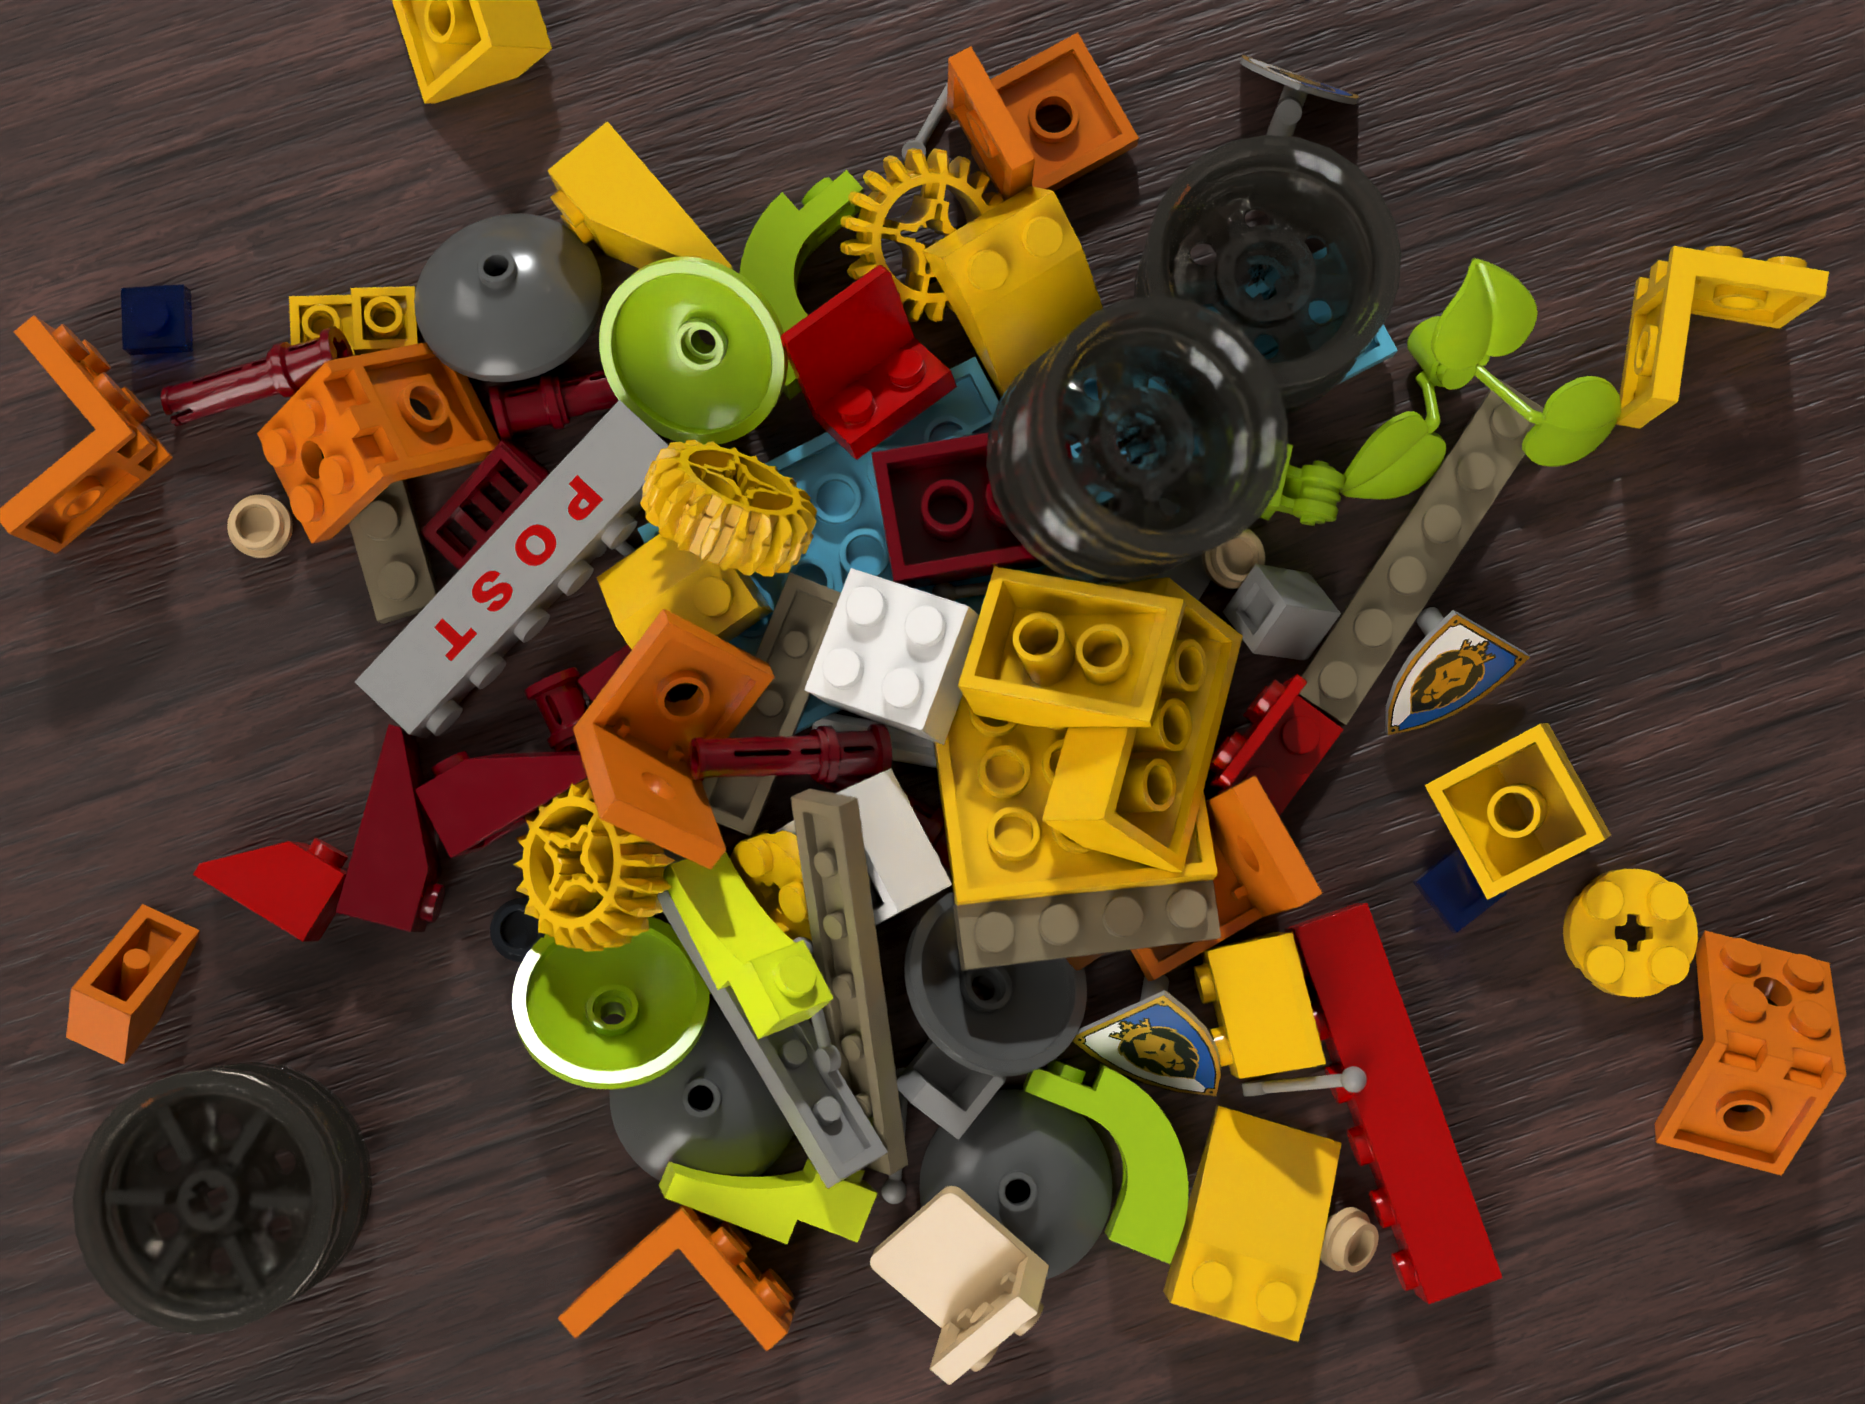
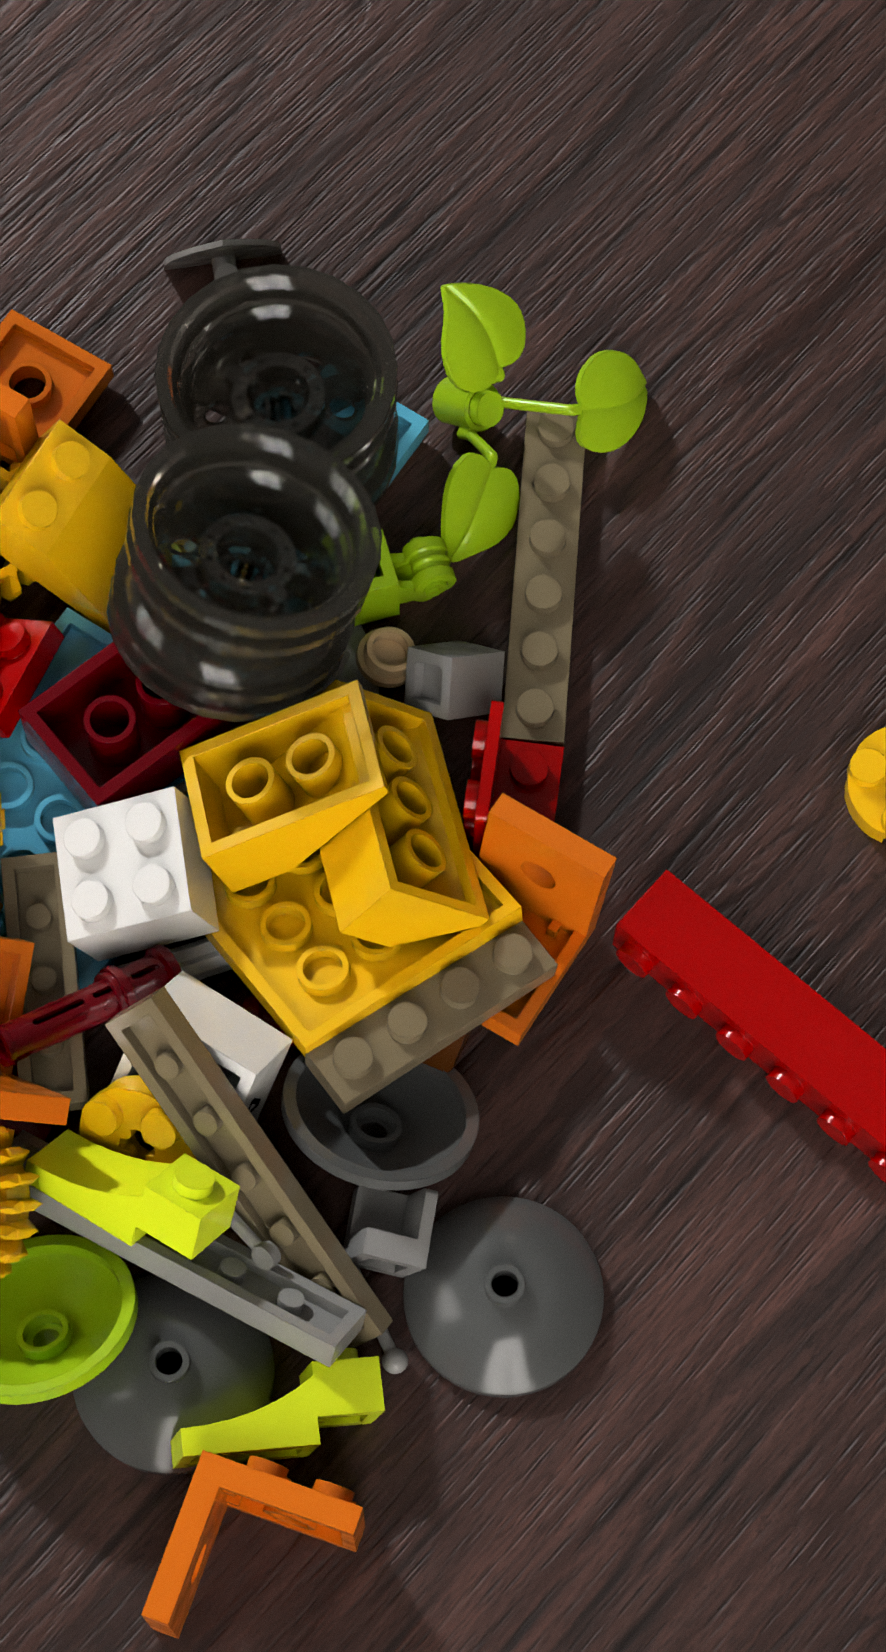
camera: 30 degrees left, 15 degrees down
(965, 1278) = (497, 1390): tan bracket -> none
(1154, 1176) = (594, 1184): lime arch -> none
(1156, 1043) = (555, 1092): shield -> none
(1255, 1224) = (734, 1206): yellow slope -> none
(1260, 1006) = (626, 1006): yellow slope -> none
(1349, 1240) = (824, 1173): tan plate -> none
(1352, 1079) = (741, 1020): light grey hinge -> none
(1448, 671) = (623, 650): shield -> none
(1454, 891) = (740, 823): clear blue plate -> none
(1517, 810) = (750, 728): yellow slope -> none
(1707, 284) = (660, 238): yellow bracket -> none

